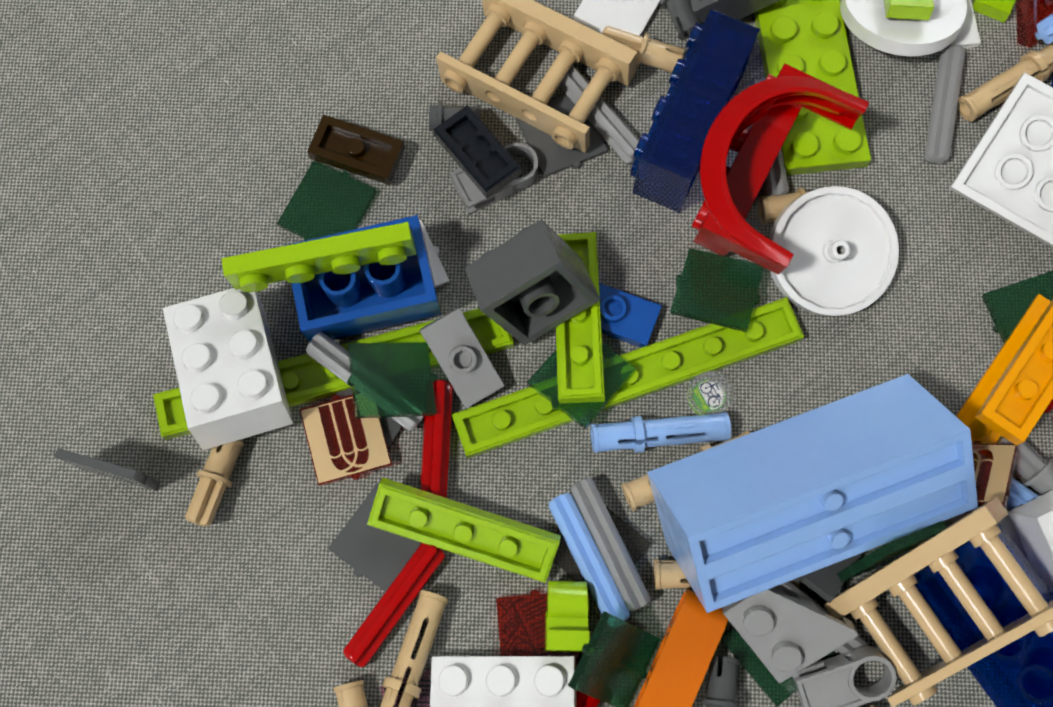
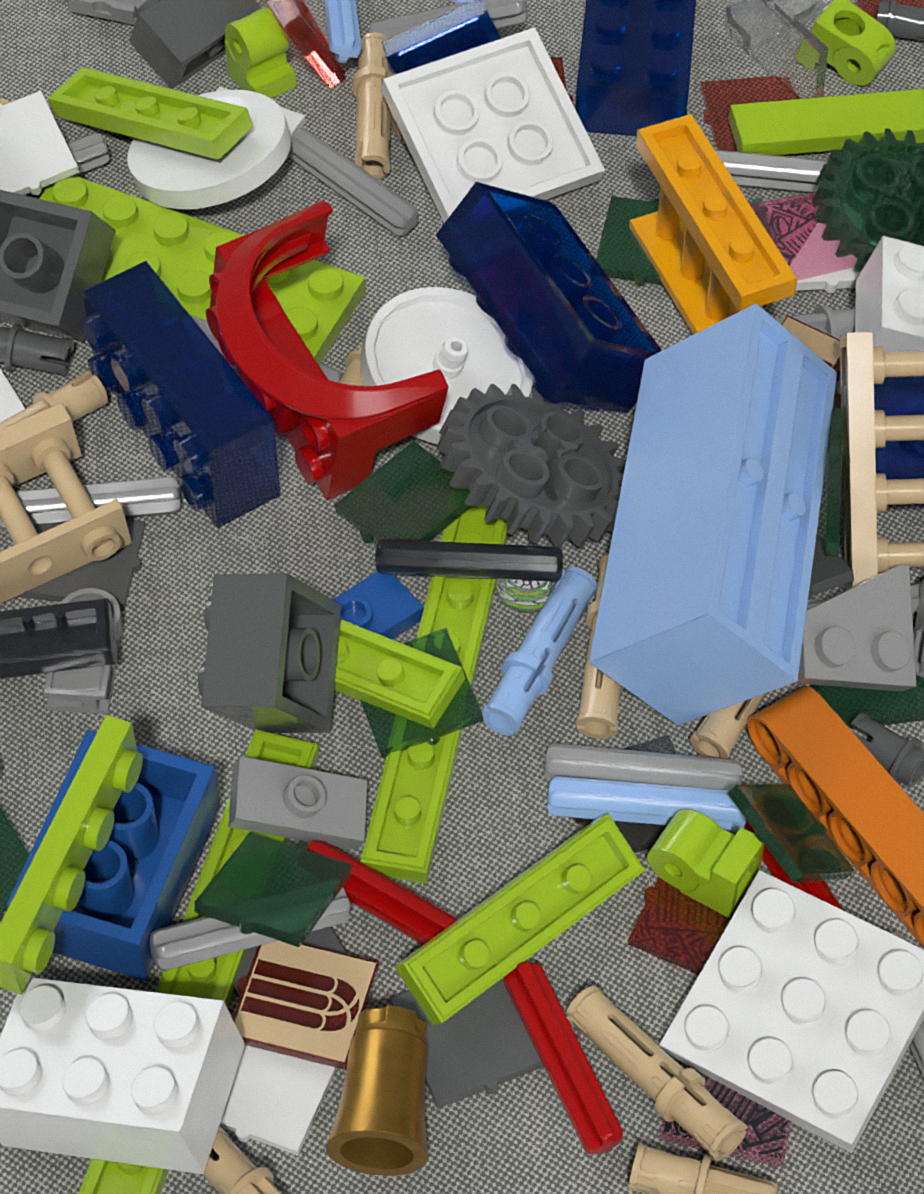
camera: 60 degrees left, 20 degrees down
(283, 455) = (275, 1098): none -> white piece
(306, 517) = (383, 1096): none -> pearl gold plant
(691, 354) = (469, 560): none -> black axle
(764, 321) = (533, 465): none -> dark grey gear
(923, 283) = (548, 298): none -> clear blue brick

